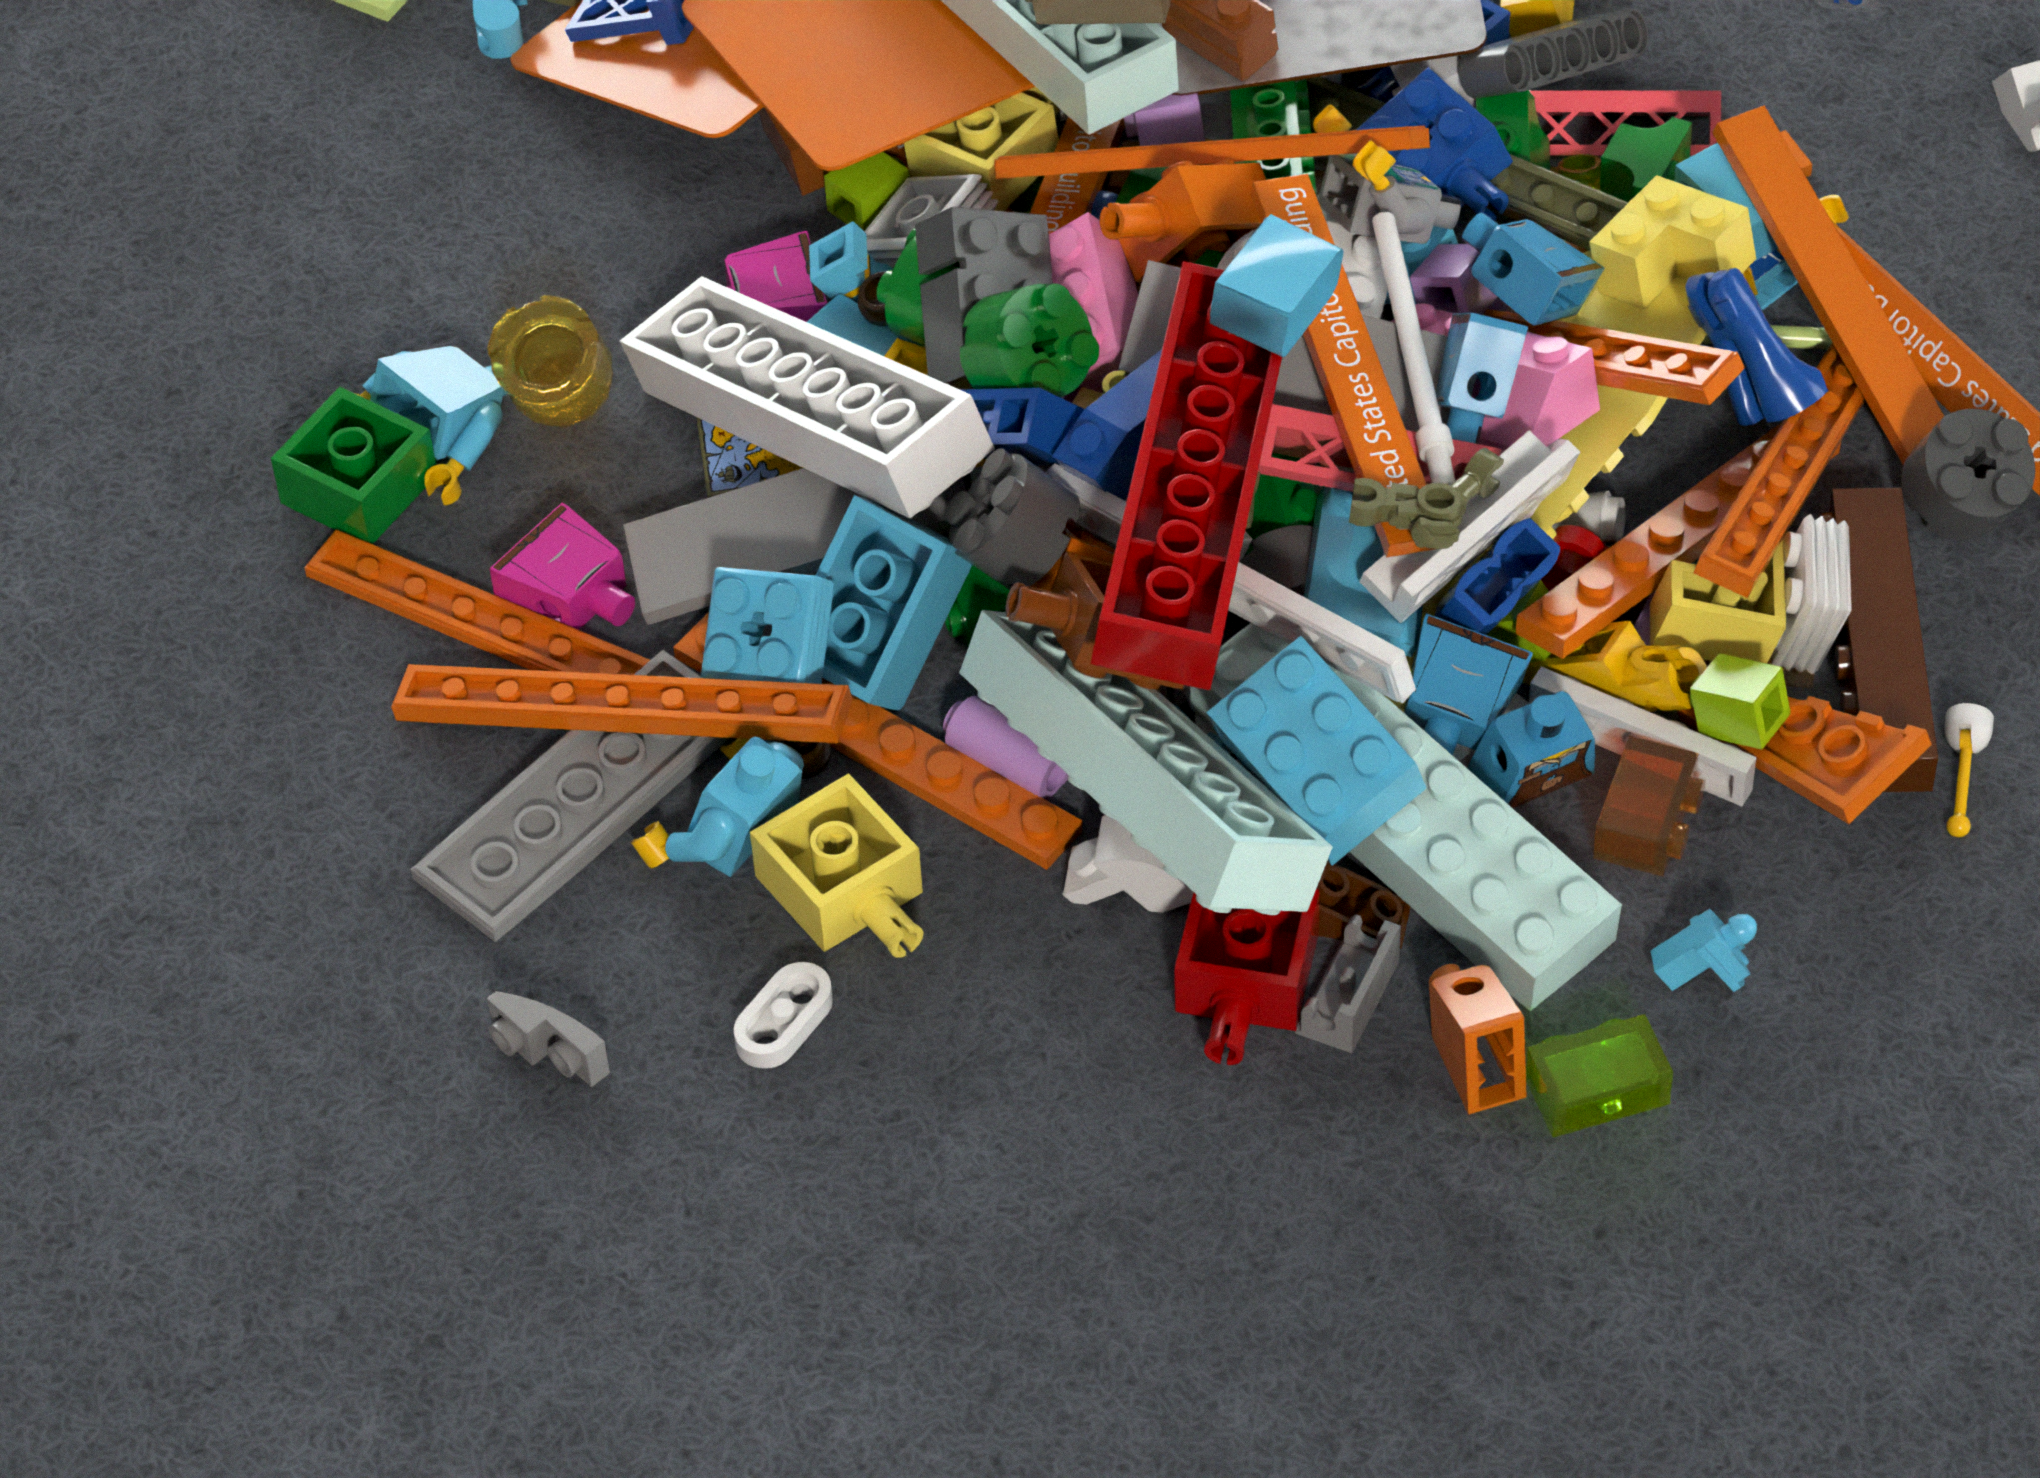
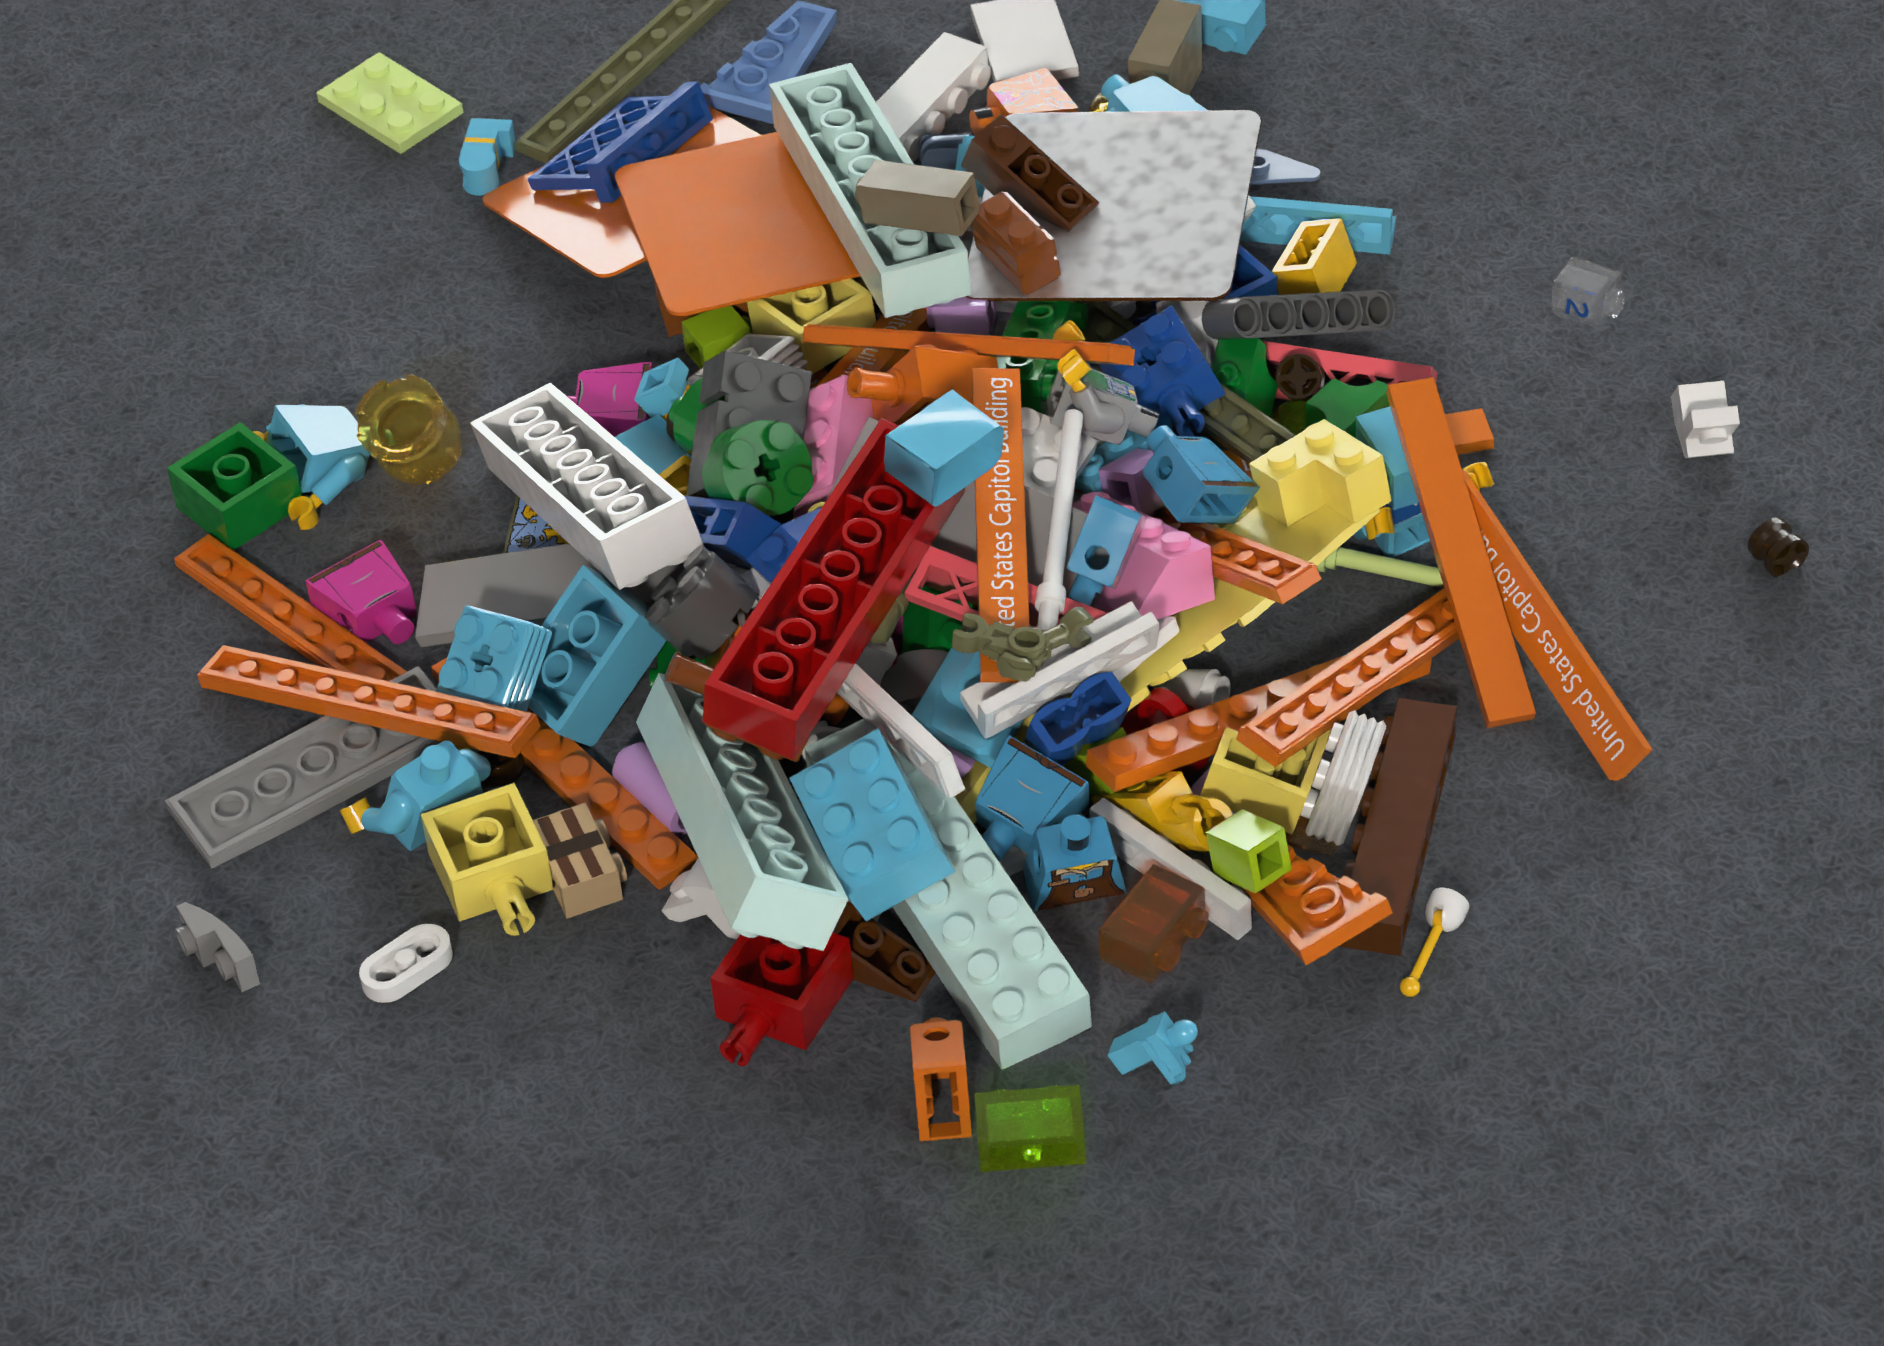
camera: 15 degrees right, 5 degrees down
(957, 859) = (579, 860): none -> tan brick
(1351, 986) = (862, 1023): light grey hinge -> none
(1582, 125) = (1291, 371): none -> dark brown wheel
(1773, 379) = (1366, 591): blue piece -> none
(1969, 473) = (1522, 679): dark grey brick -> none

